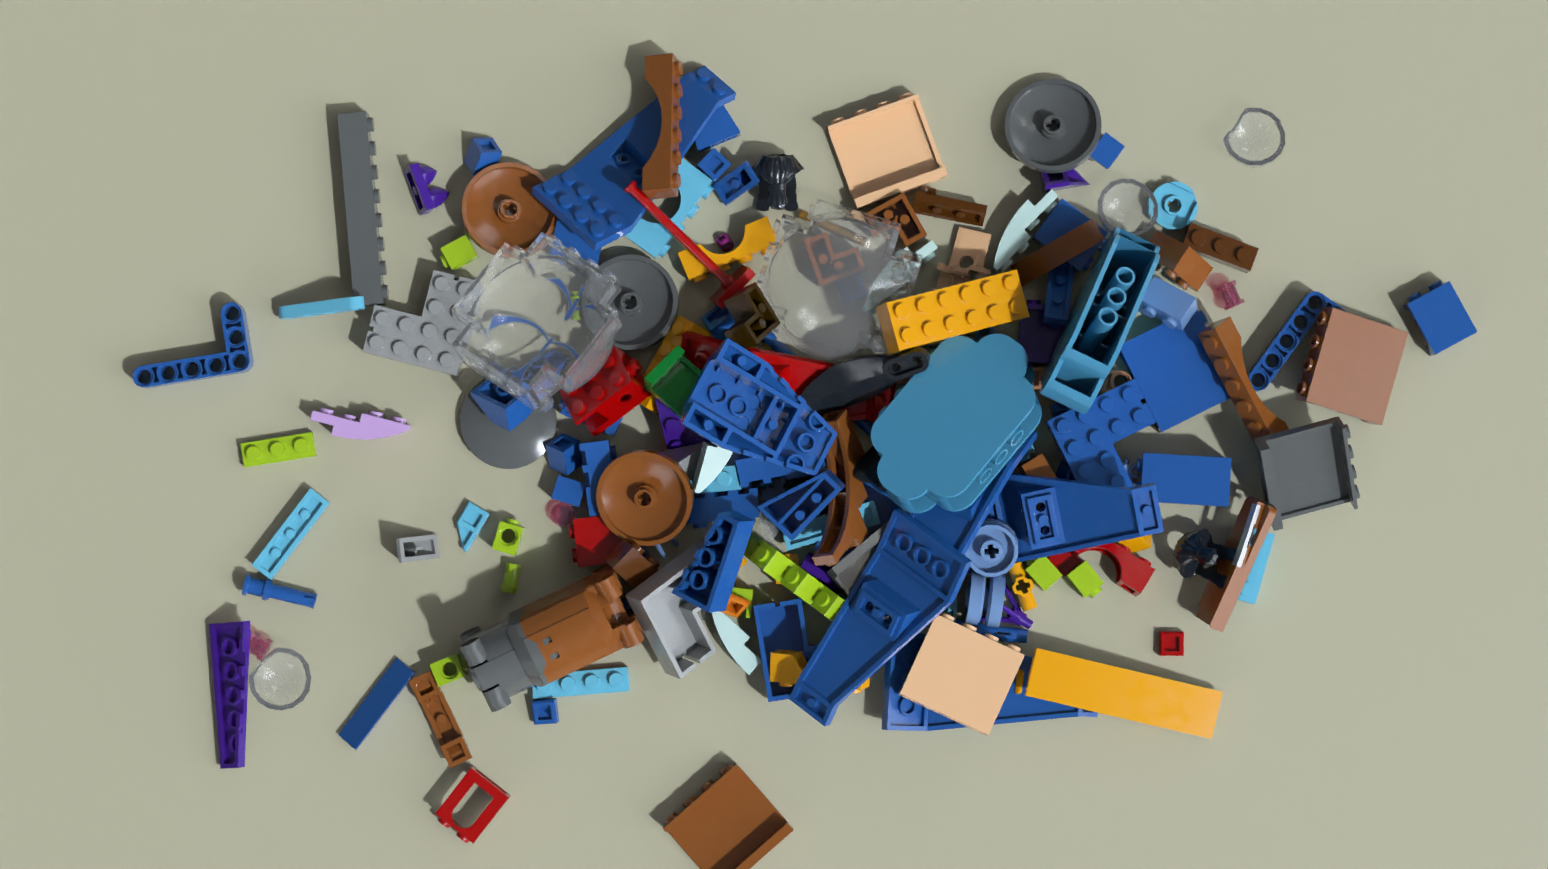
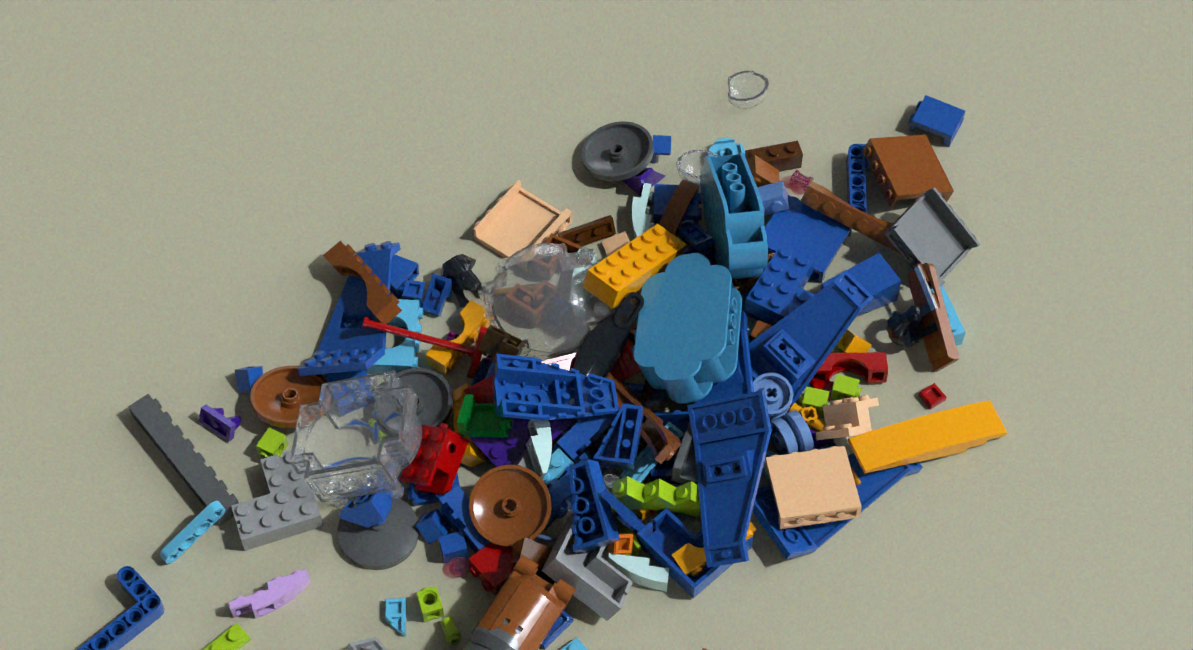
camera: 30 degrees left, 30 degrees down
(750, 588) = (624, 515): none -> blue wing
(1054, 621) = (847, 417): none -> light nougat bracket

